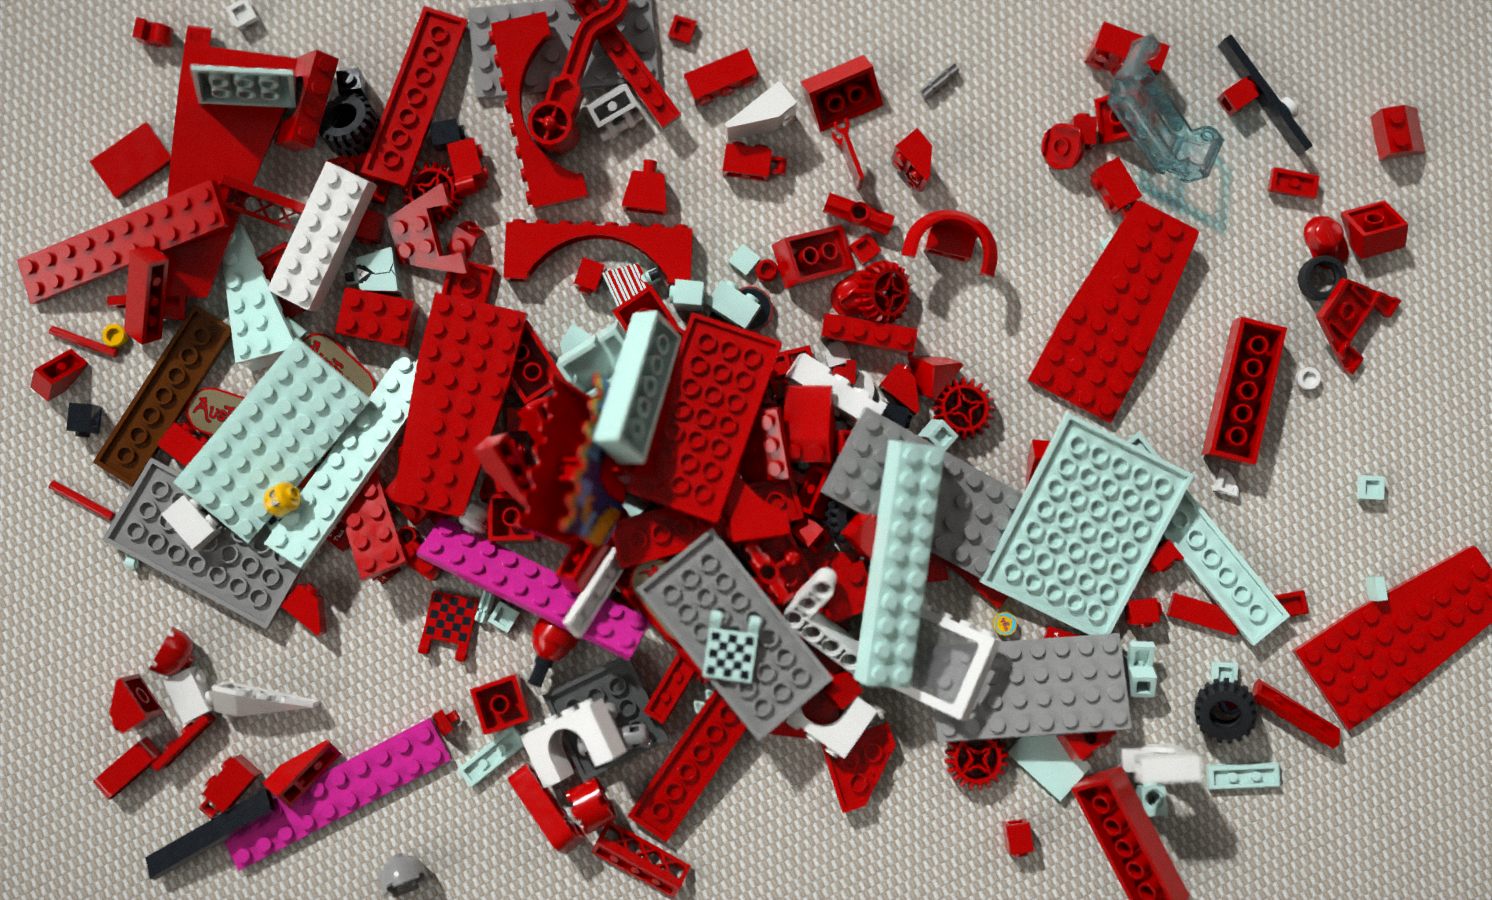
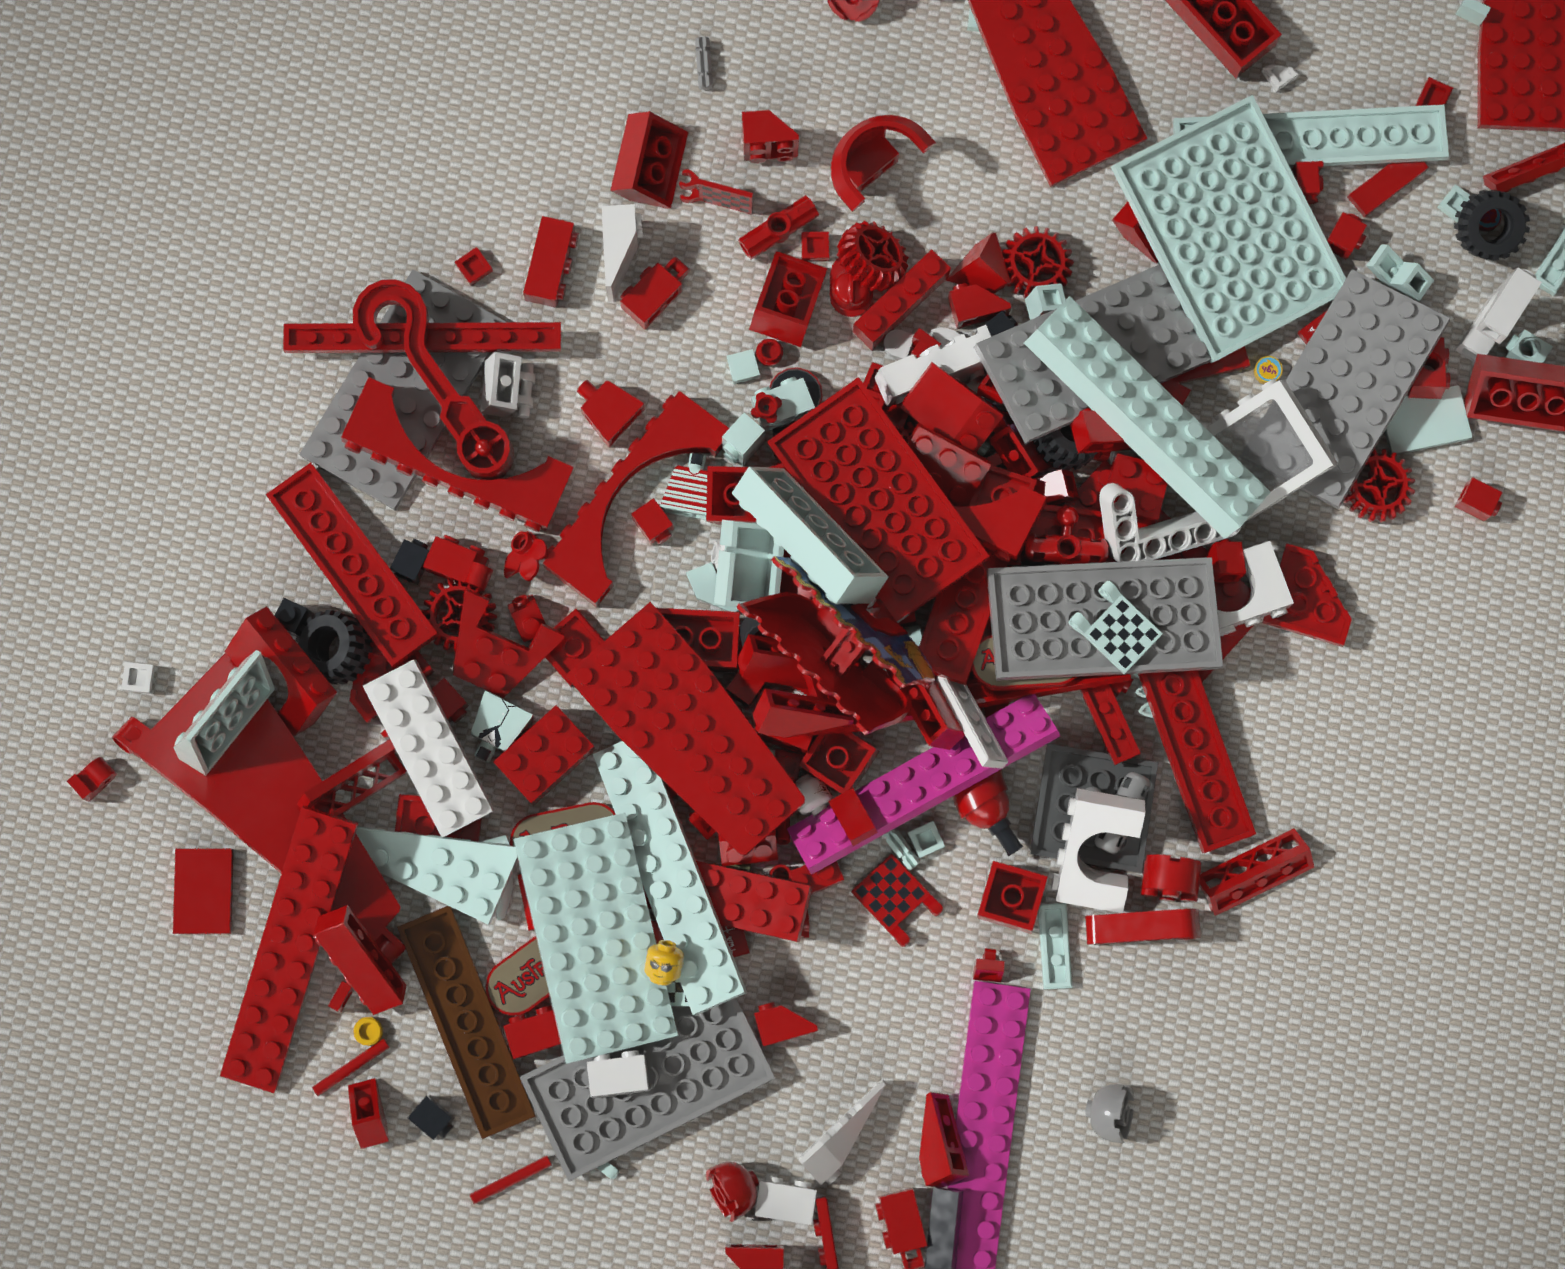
camera: 60 degrees left, 5 degrees down
(473, 557) = (853, 817): none -> red tile
(505, 207) = (525, 555): none -> red plate
(720, 288) = (762, 400): none -> red plate

